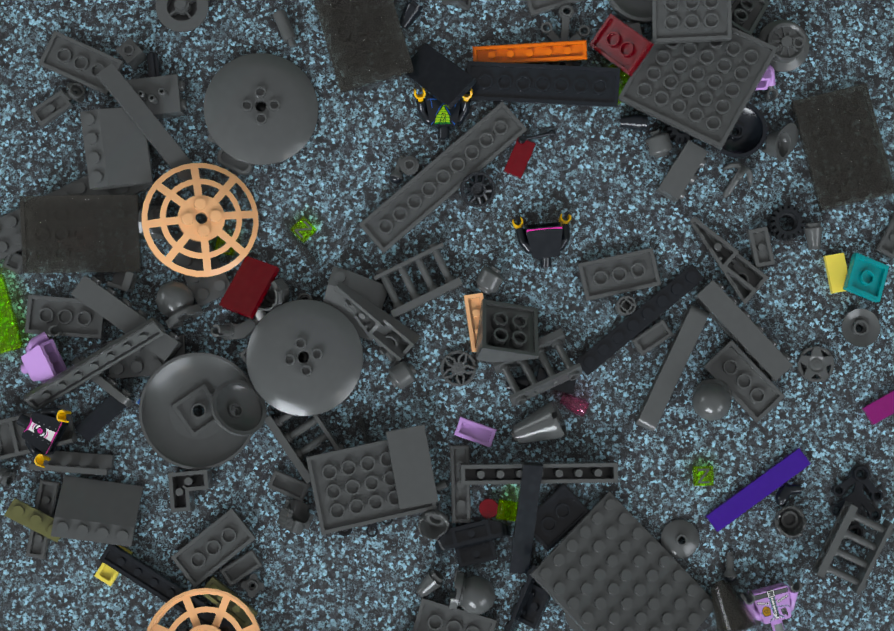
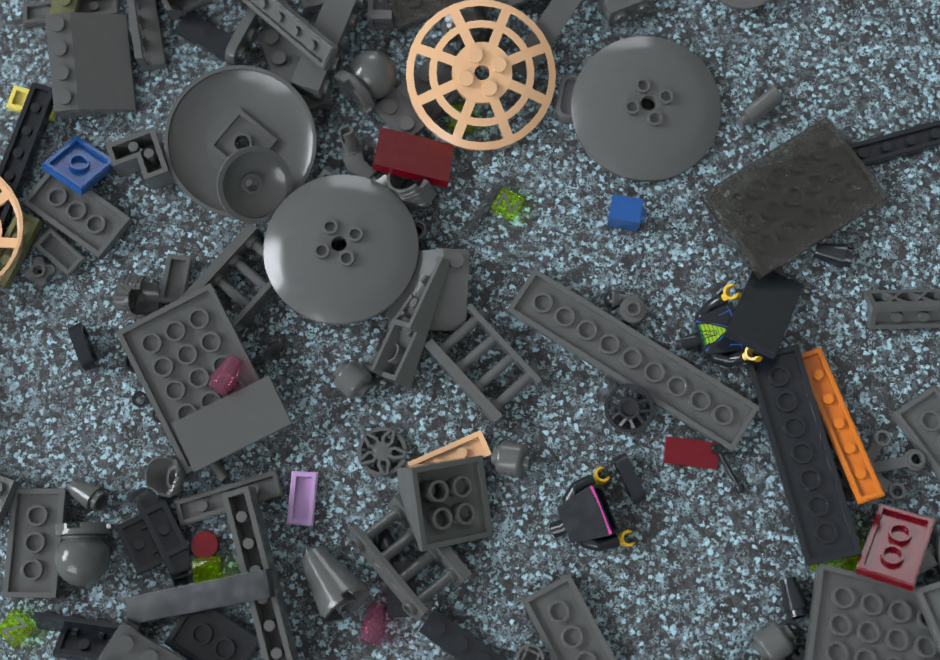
camera: 80 degrees right, 10 degrees down
(177, 538) = (78, 165): none -> blue tile
(320, 564) = (83, 346): none -> black beam
(336, 147) = (626, 212): none -> blue brick
(377, 462) = (225, 375): none -> clear pink cone
(525, 204) = (629, 478): none -> black beam

